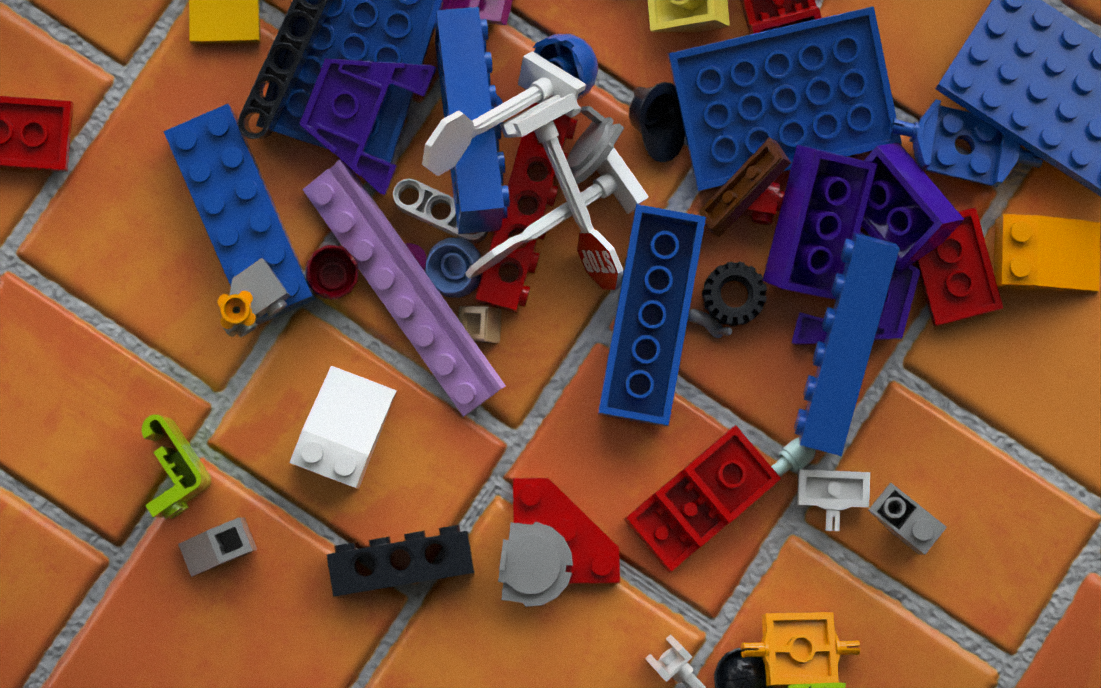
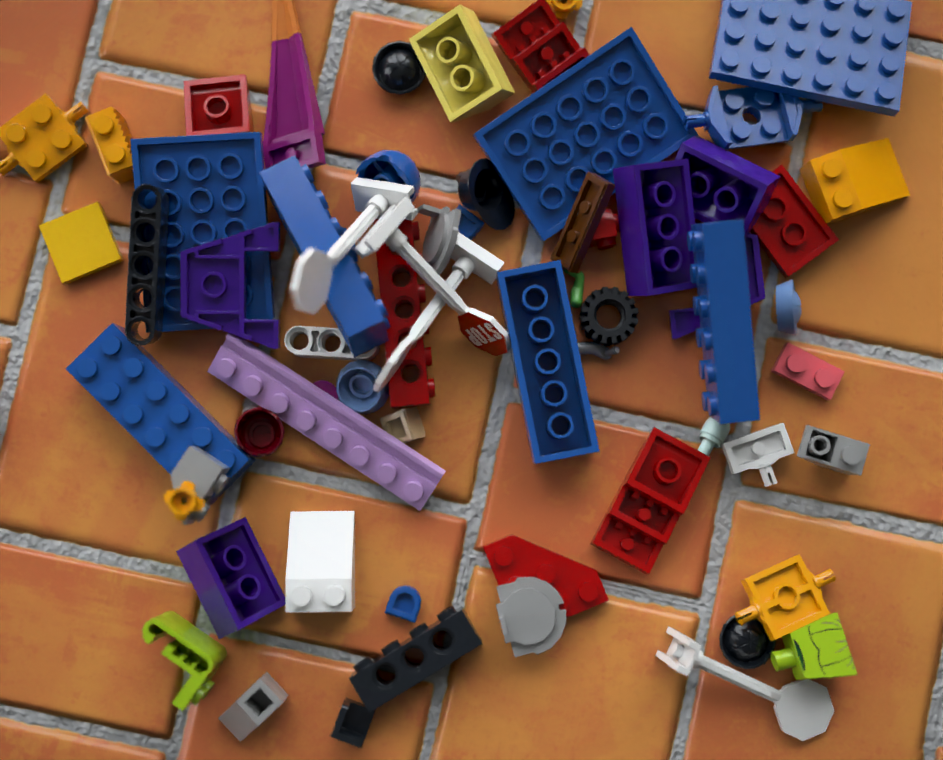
camera: 20 degrees left, 0 degrees up
(247, 407) = (231, 577): none -> dark purple slope
(312, 601) = (352, 723): none -> black panel
(410, 504) = (404, 603): none -> blue tile
(628, 142) = (469, 224): none -> blue tile
(713, 255) = (576, 295): none -> bright green piece
(918, 431) = (807, 371): none -> coral plate
(920, 356) = (787, 307): none -> medium blue hat

